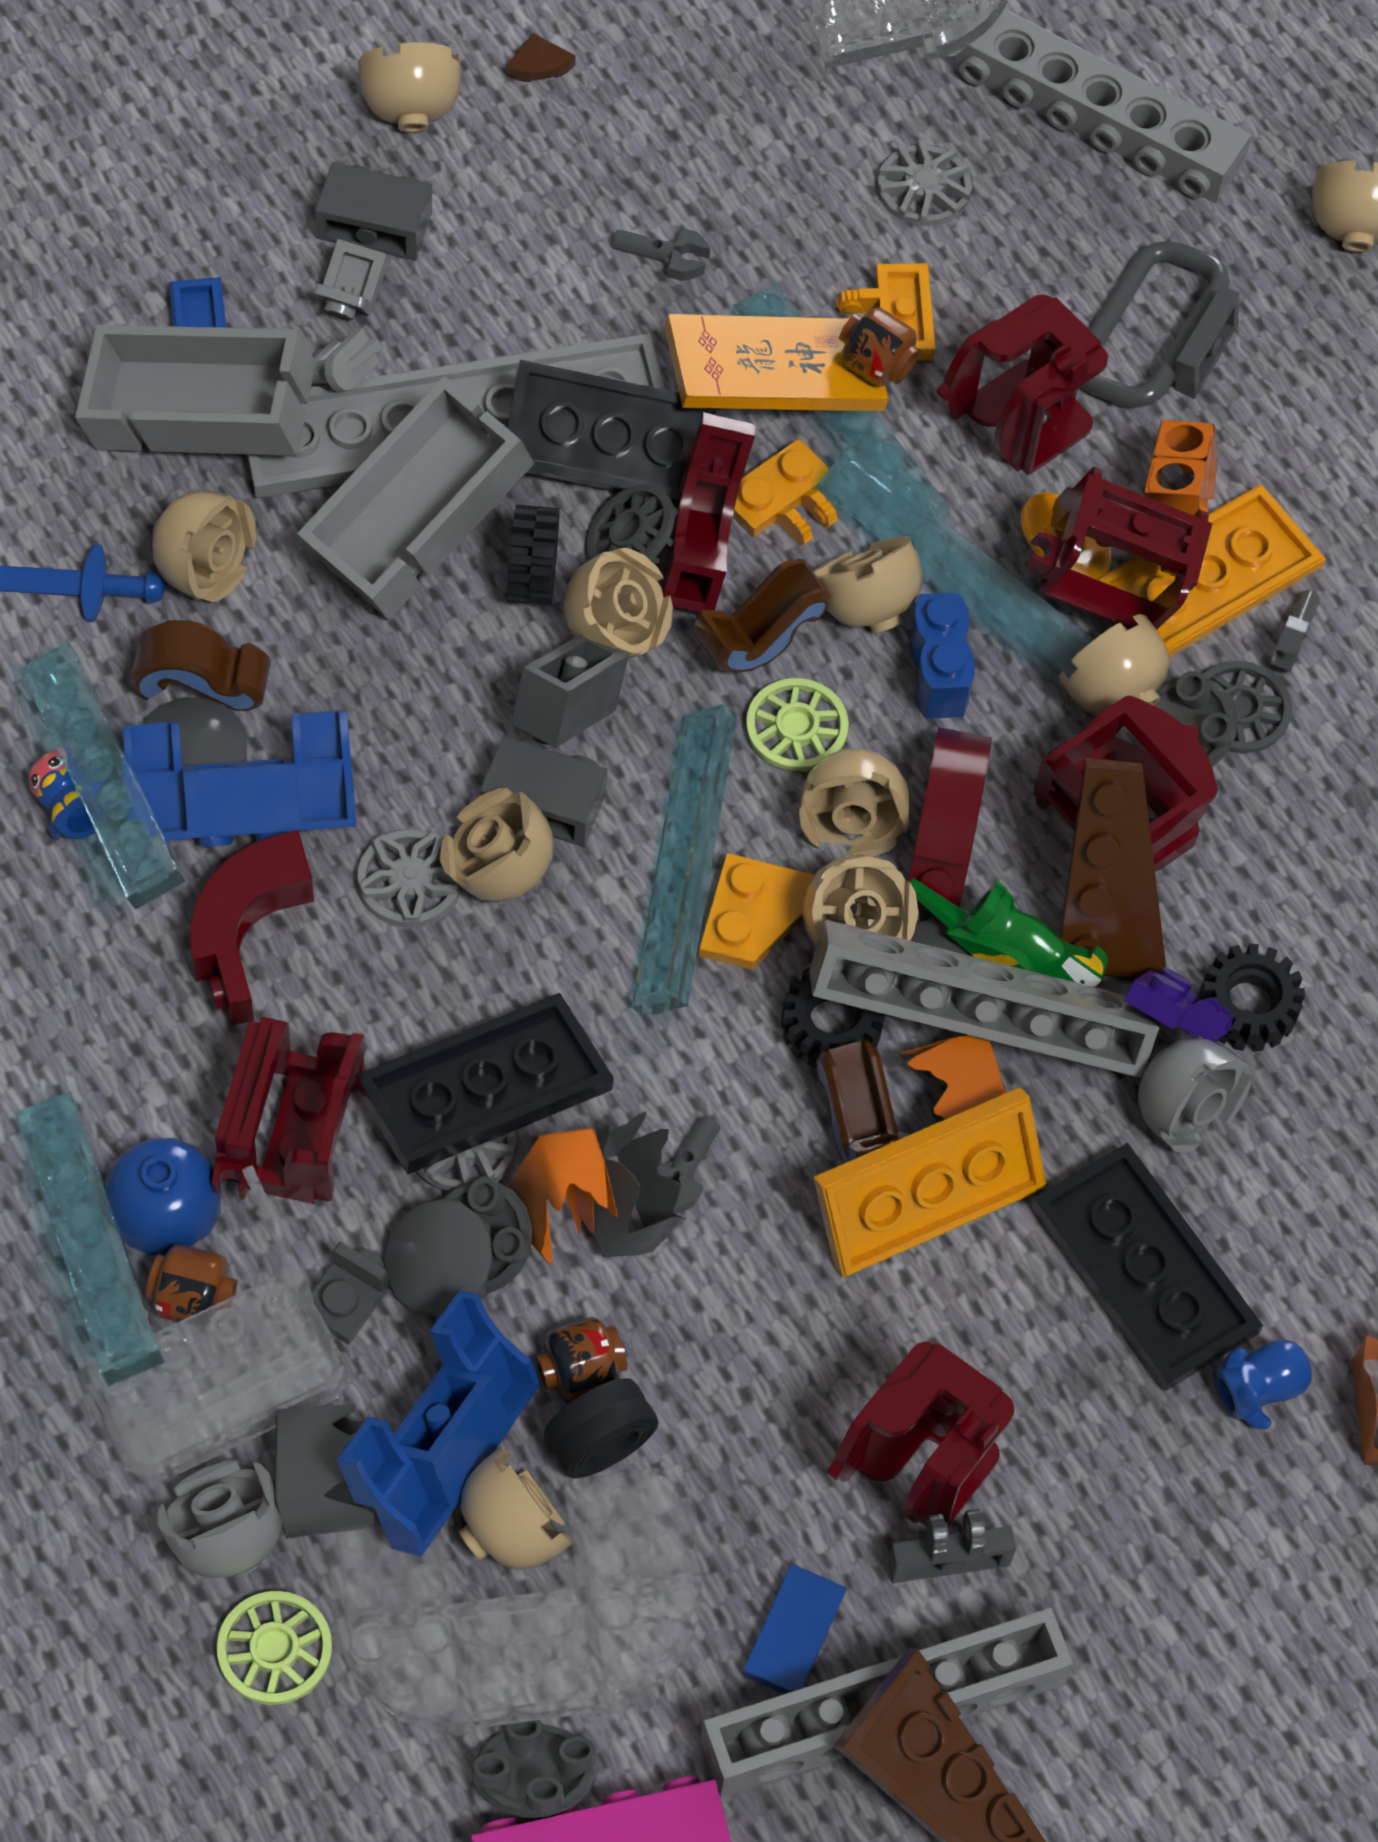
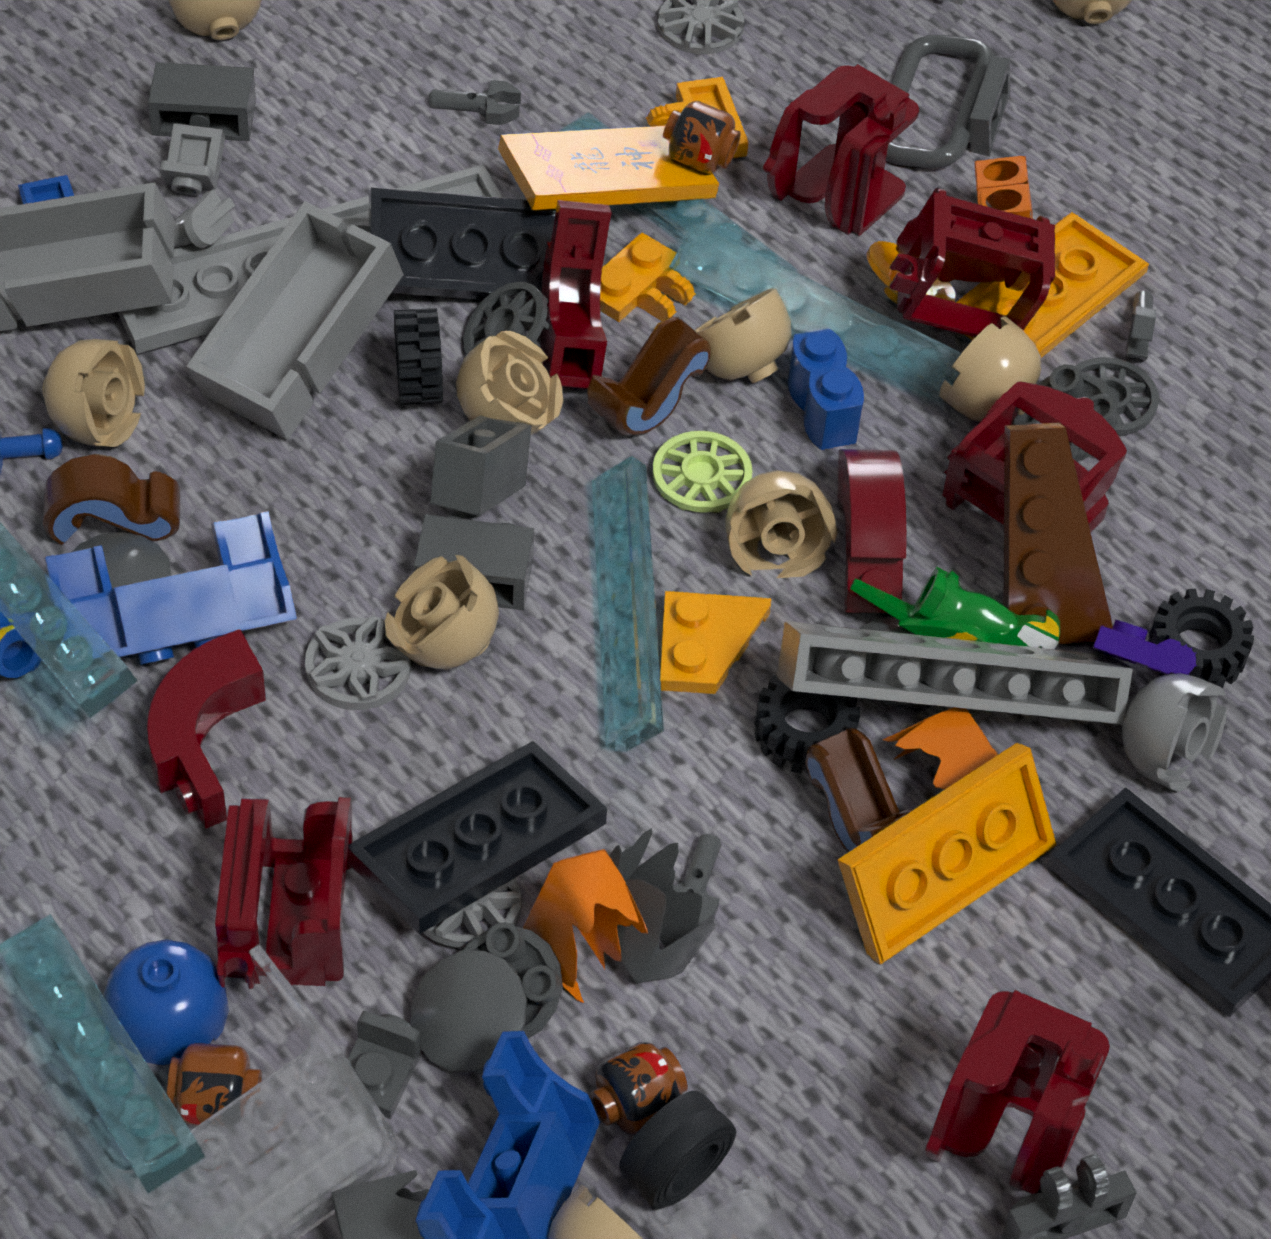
camera: 10 degrees left, 10 degrees down
(861, 894) = (808, 593): tan cylinder -> none

